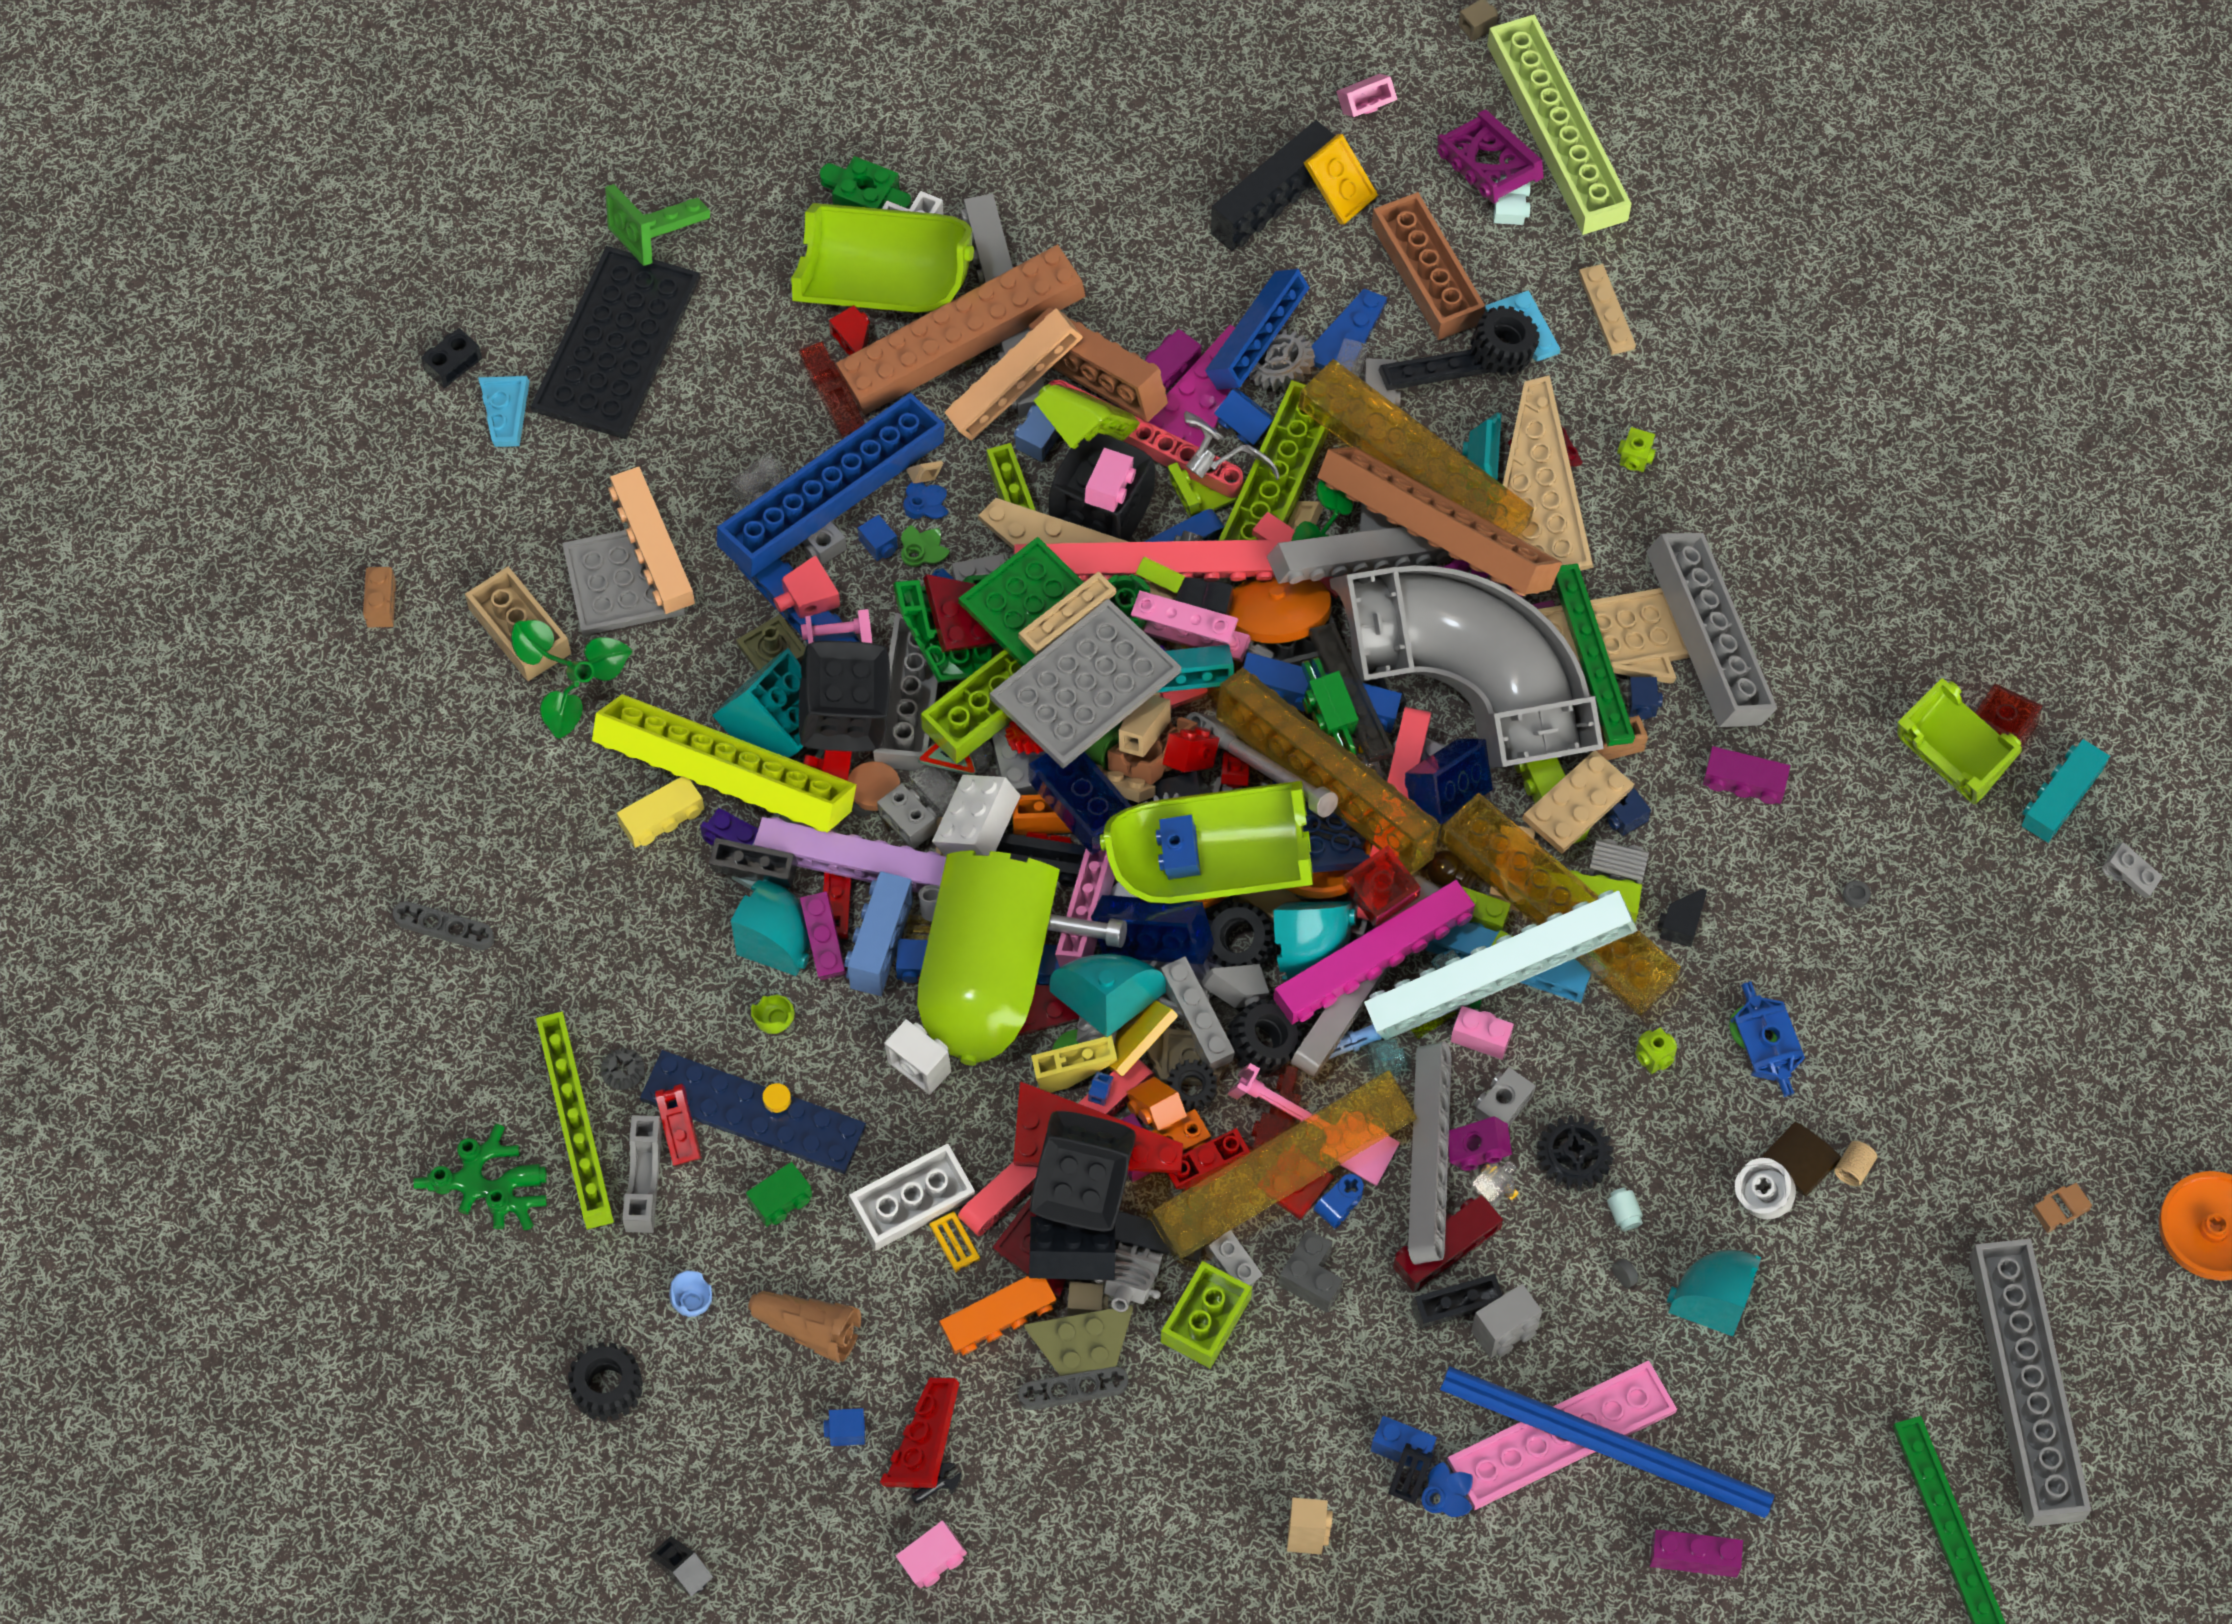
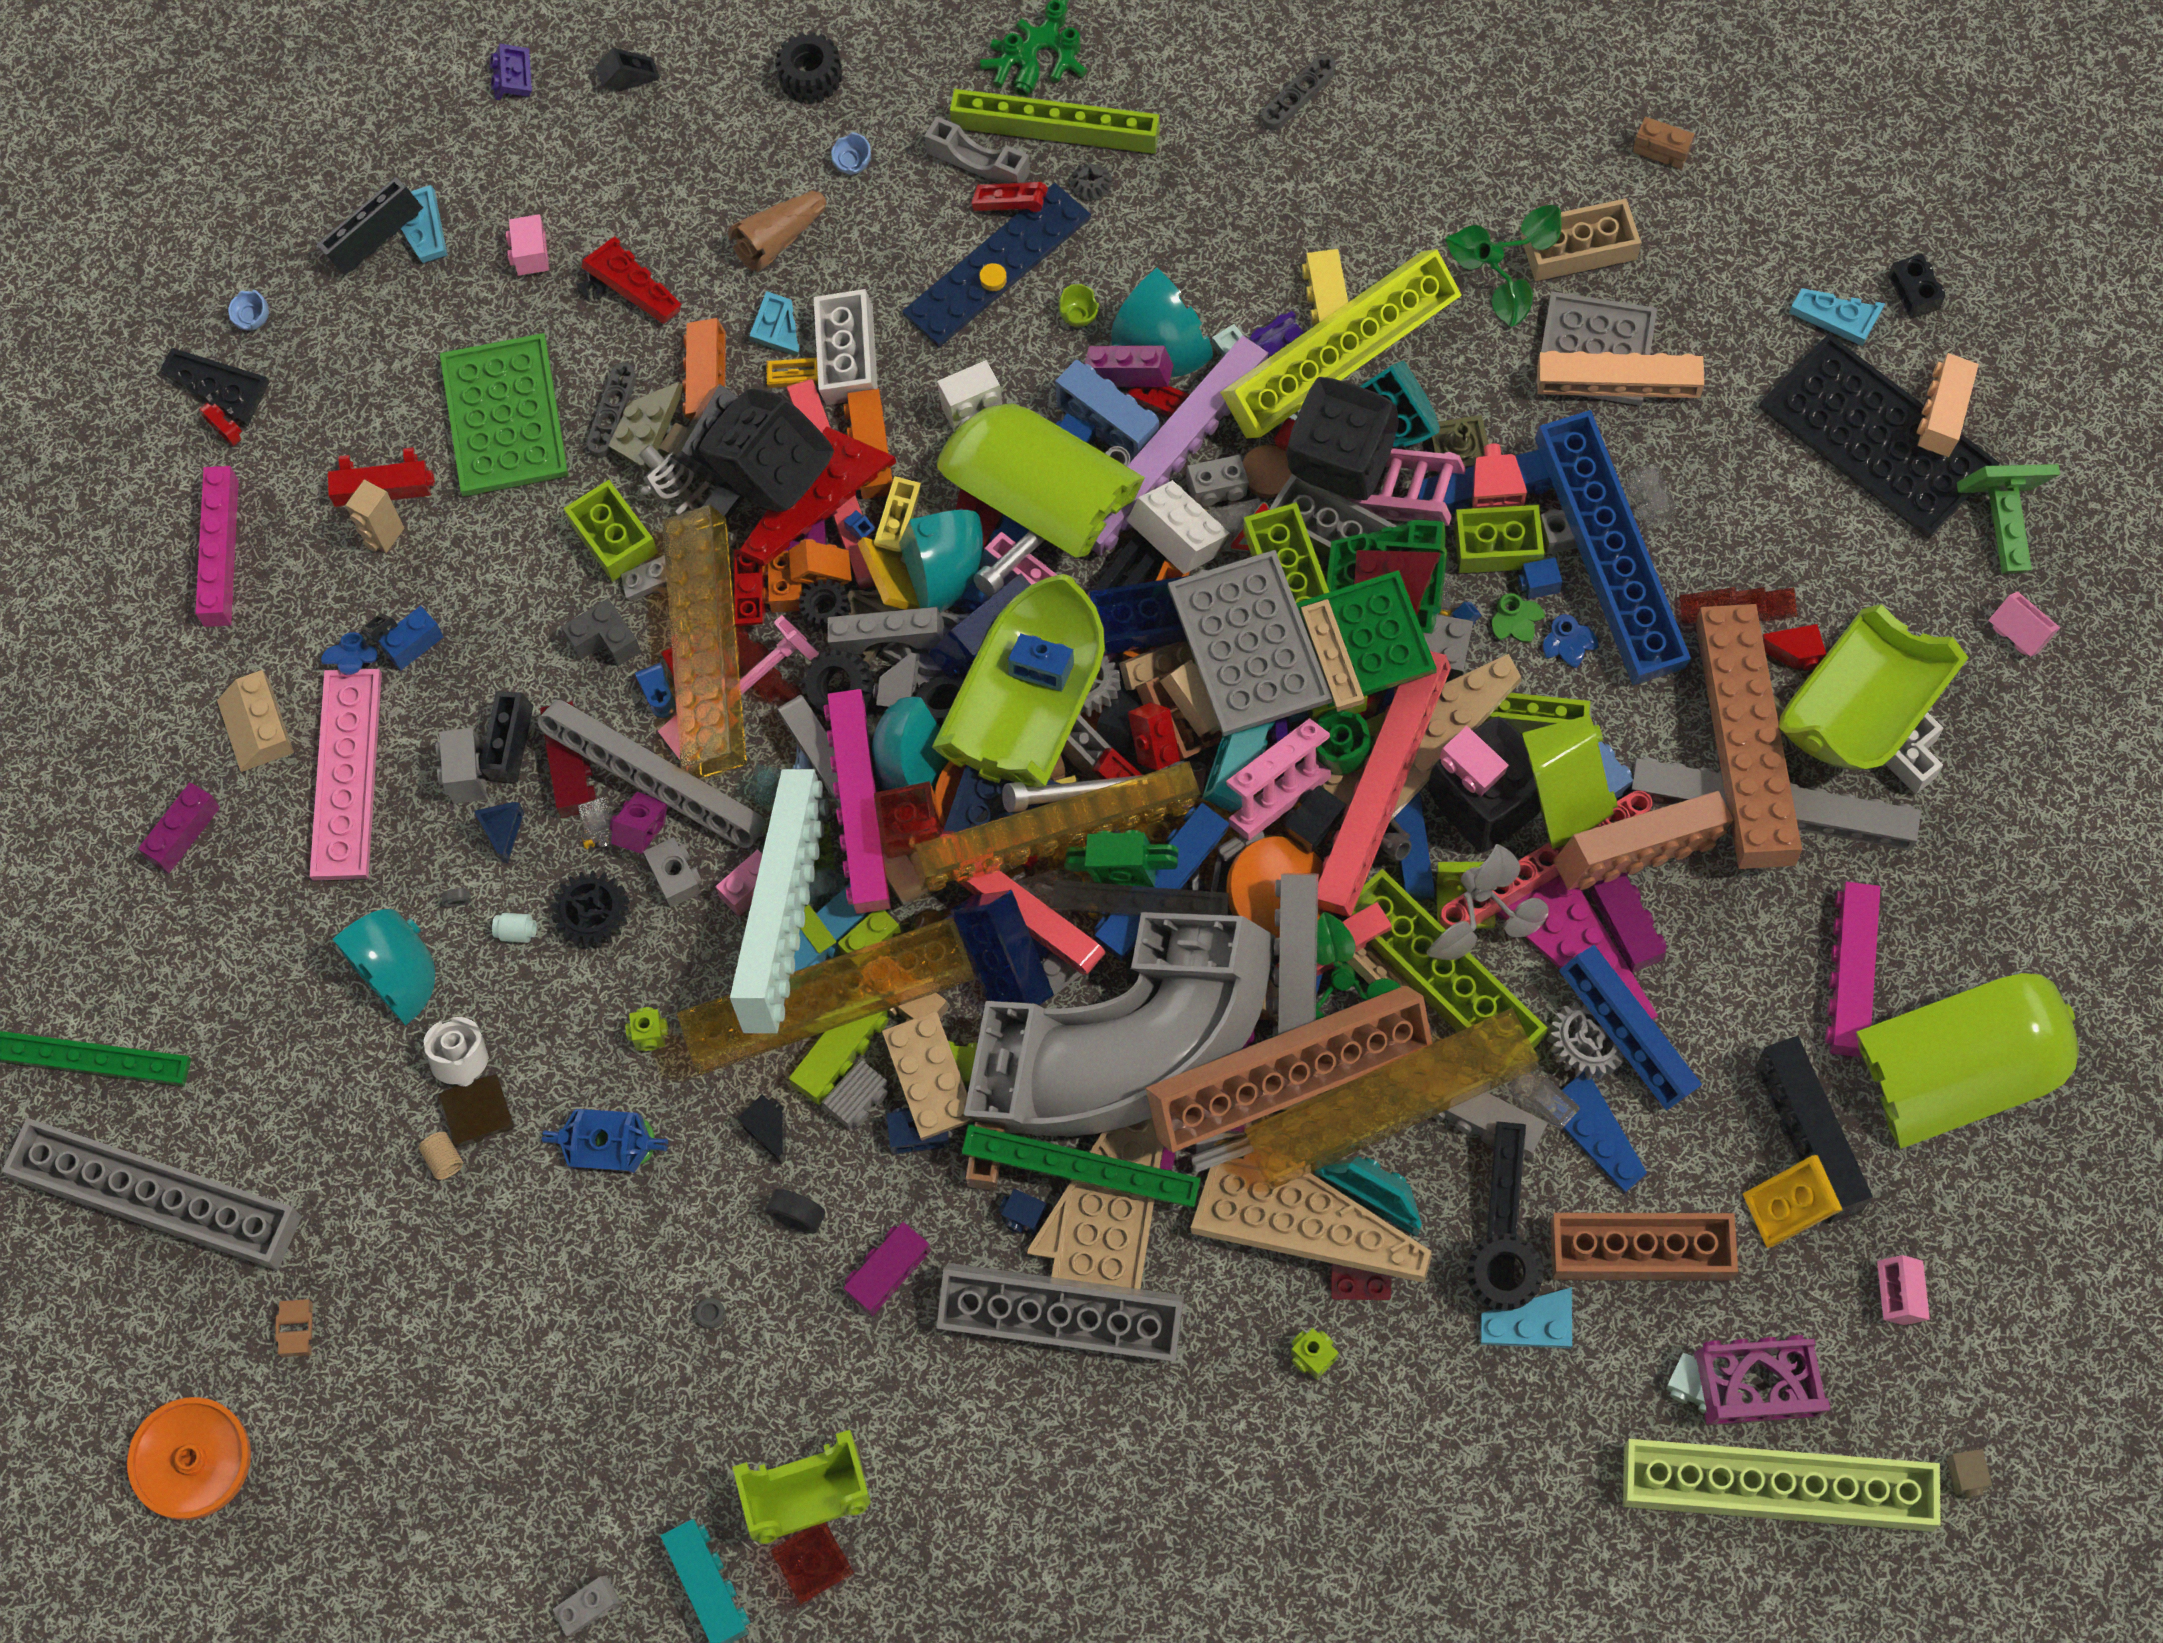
camera: 120 degrees right, 5 degrees up
(570, 292) = (1947, 404): none -> light nougat brick
(753, 862) = (1236, 318): black brick -> none
(756, 183) = (2023, 624): none -> bright pink brick
(779, 1195) = (906, 252): green brick -> none
(845, 1427) = (672, 226): blue brick -> none
(851, 184) = (1975, 724): green brick -> none
(858, 576) = (1497, 538): none -> lime brick
(911, 1279) = (776, 325): none -> medium azure wing
(924, 472) = (1602, 649): tan slope -> none
(986, 1140) = (868, 426): none -> orange brick
(1013, 374) = (1665, 755): light nougat brick -> none
(1120, 206) = (1854, 966): none -> dark pink brick
(1126, 1486) = (503, 414): none -> bright green plate
(1160, 575) = (1355, 781): lime sticker -> none
(1163, 101) = (1970, 1055): none -> lime panel
(1244, 417) = (1528, 969): blue brick -> none
(1258, 1562) = (400, 480): none -> red brick
(1542, 1264) = (501, 826): none -> dark blue slope
(1558, 1546) = (254, 721): none -> tan slope
(1607, 309) = (1514, 1422): tan plate -> none
(1607, 1442) = (309, 797): blue axle -> none
(1743, 857) = (795, 1211): none -> black tyre

